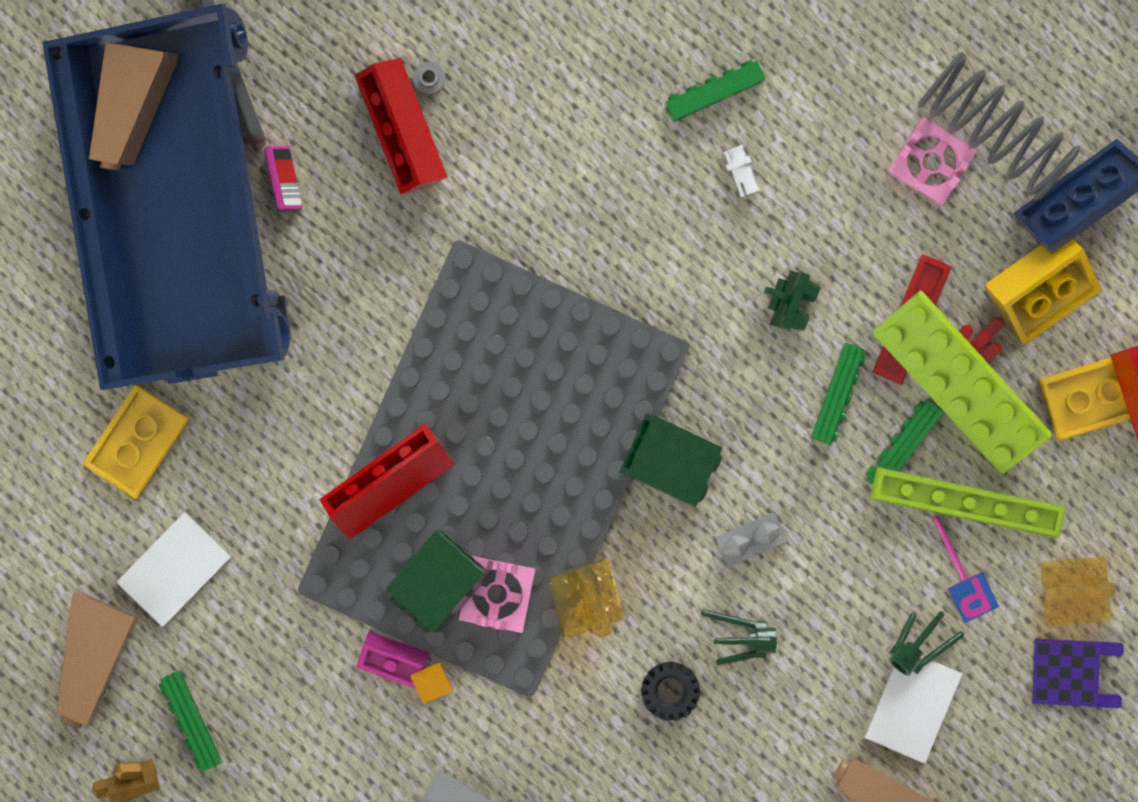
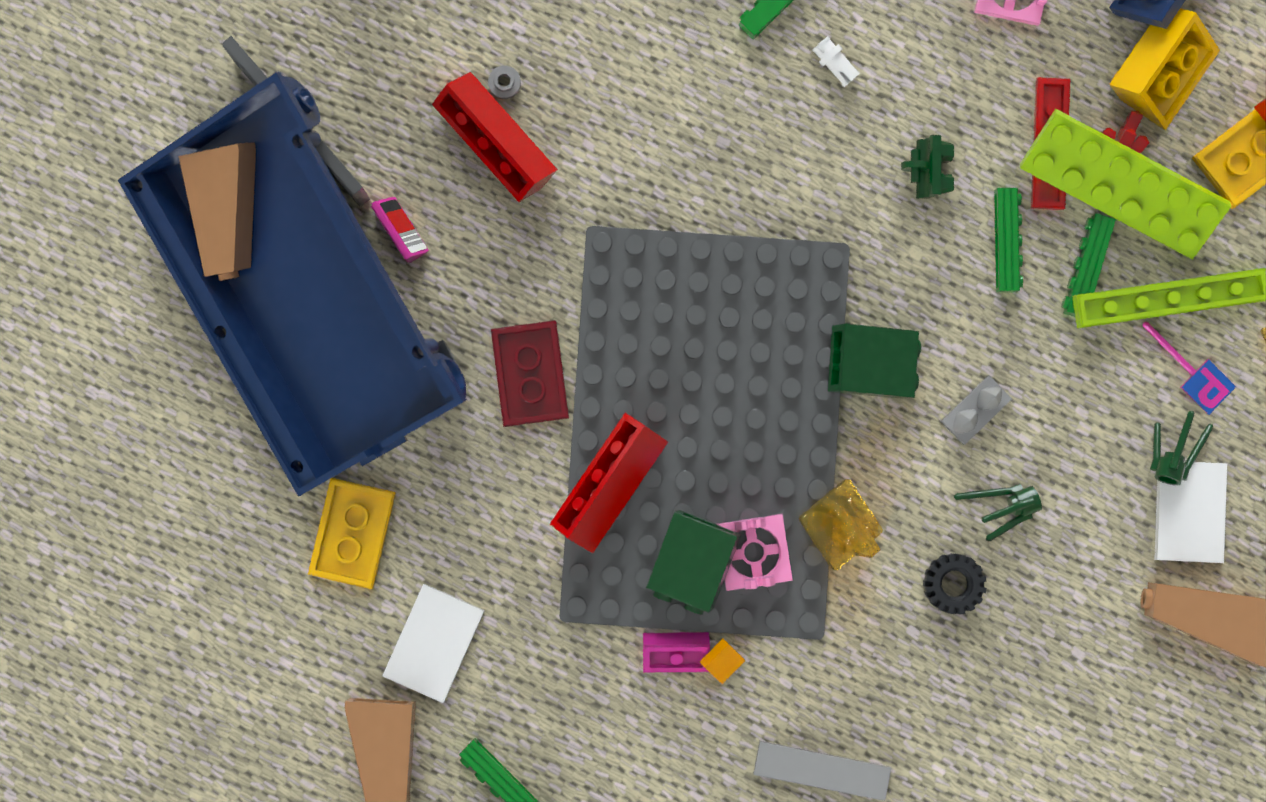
camera: 15 degrees left, 0 degrees up
(353, 355) = (529, 373): none -> dark red tile

